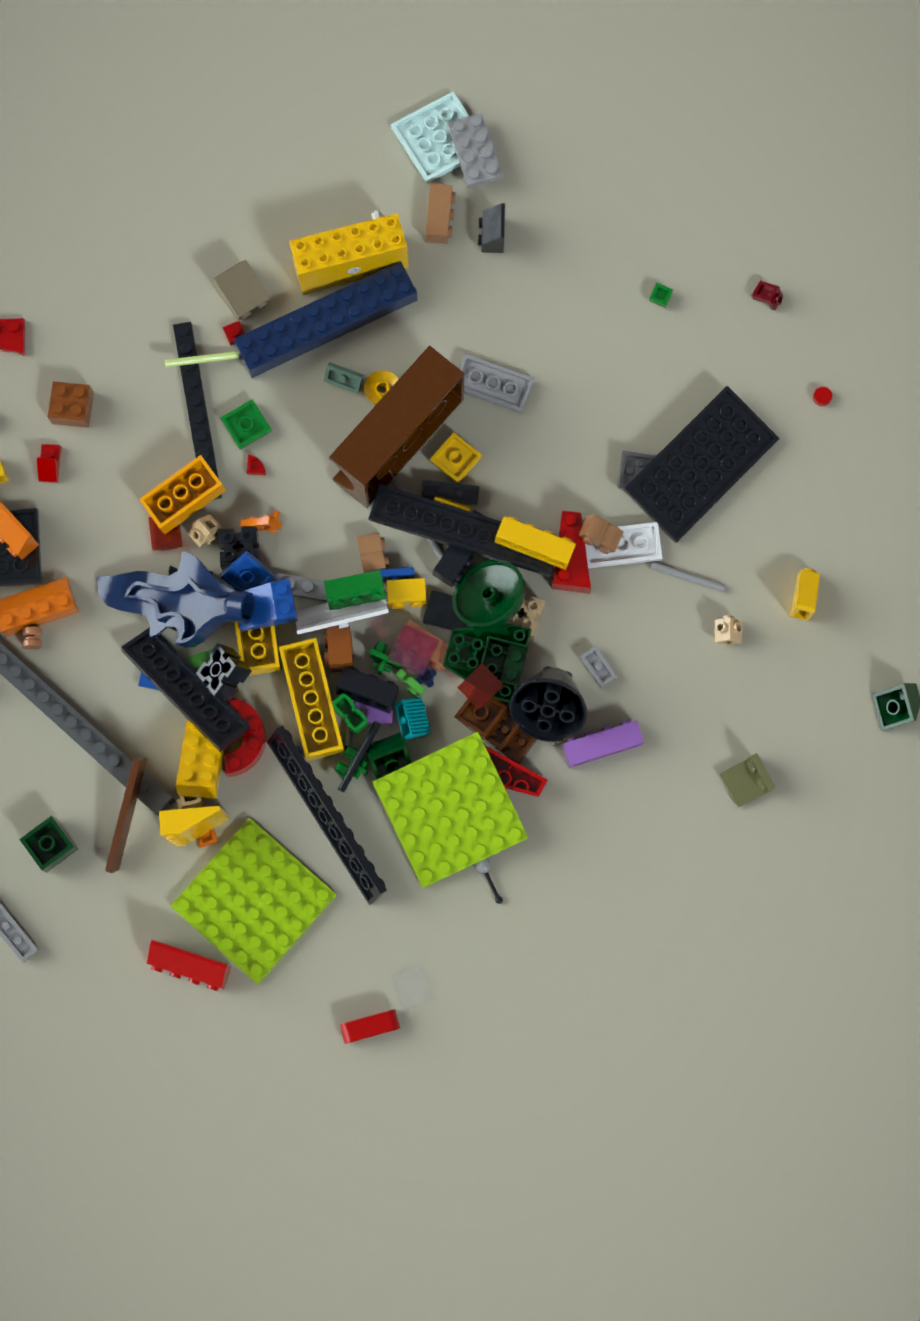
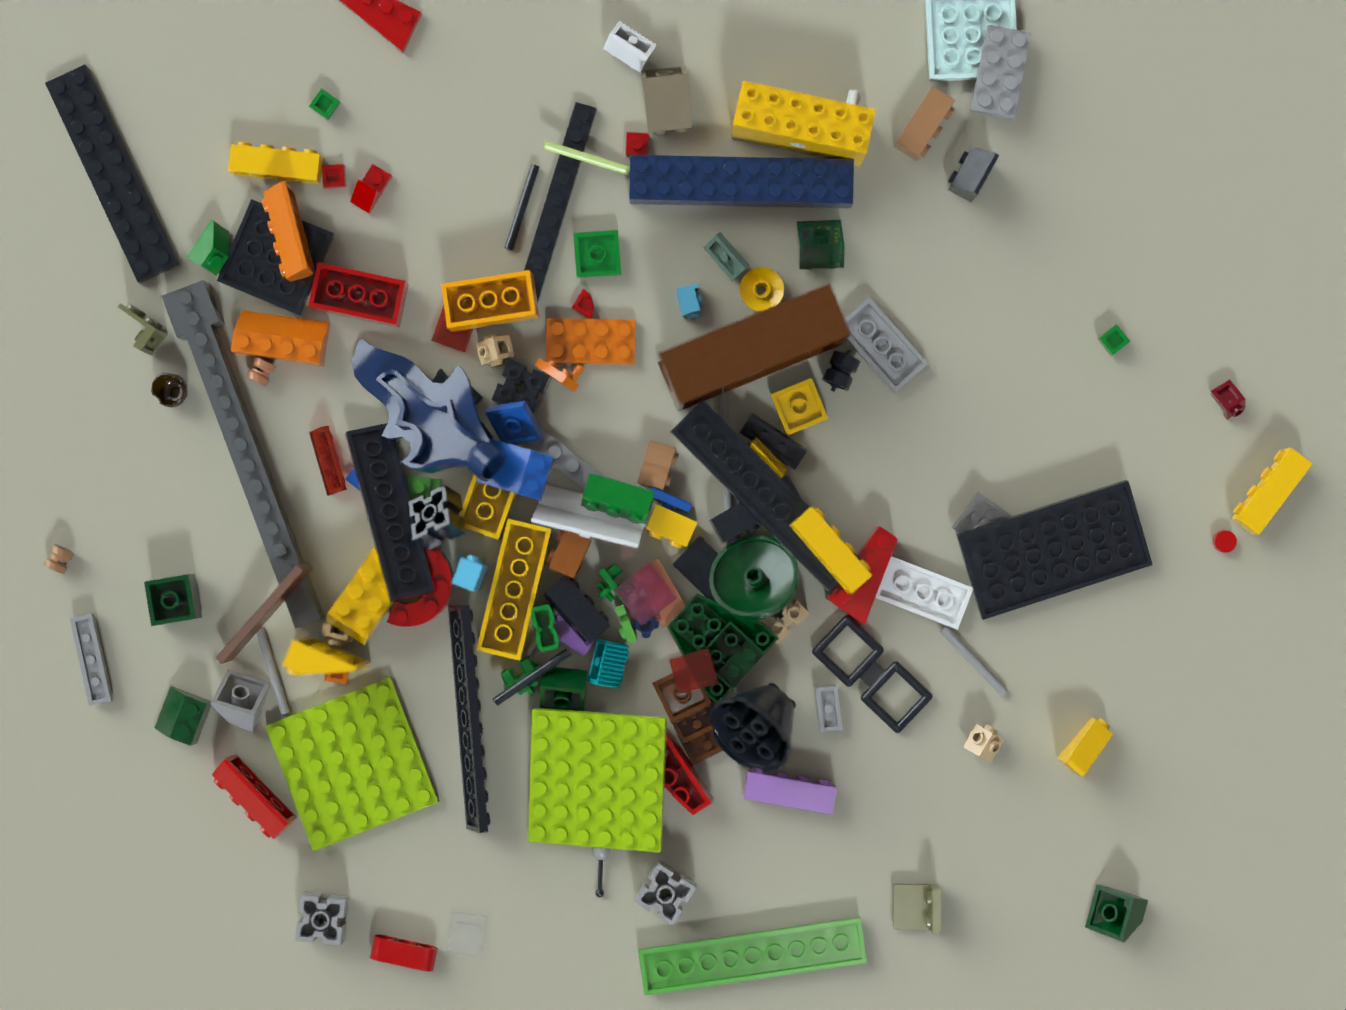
camera: 30 degrees right, 10 degrees up
(16, 468) = (333, 176): none -> red tile
(70, 404) = (423, 136): dark orange brick -> none
(79, 542) = (358, 294): none -> red brick
(101, 931) = (183, 716): none -> dark green slope
(117, 678) = (328, 460): none -> clear red plate
(141, 895) = (240, 699): none -> light grey slope
(154, 861) = (272, 670): none -> light grey piece
(171, 420) = (518, 218): none -> black bar
(193, 265) = (629, 46): none -> white brick
(271, 701) = (470, 572): none -> medium azure brick
(274, 489) = (590, 341): none -> orange plate
(304, 1036) = (312, 927): none -> light grey brick
(333, 423) = (689, 301): none -> medium azure brick
(409, 335) = (820, 244): none -> clear green slope
(472, 411) = (839, 374): none -> black wheel
(541, 859) = (668, 906): none -> light grey brick
(601, 534) = (906, 573): medium nougat brick -> none
(617, 625) = (872, 674): none -> black bar
(641, 885) = (752, 956): none -> bright green plate
(835, 342) = (1271, 491): none -> yellow brick

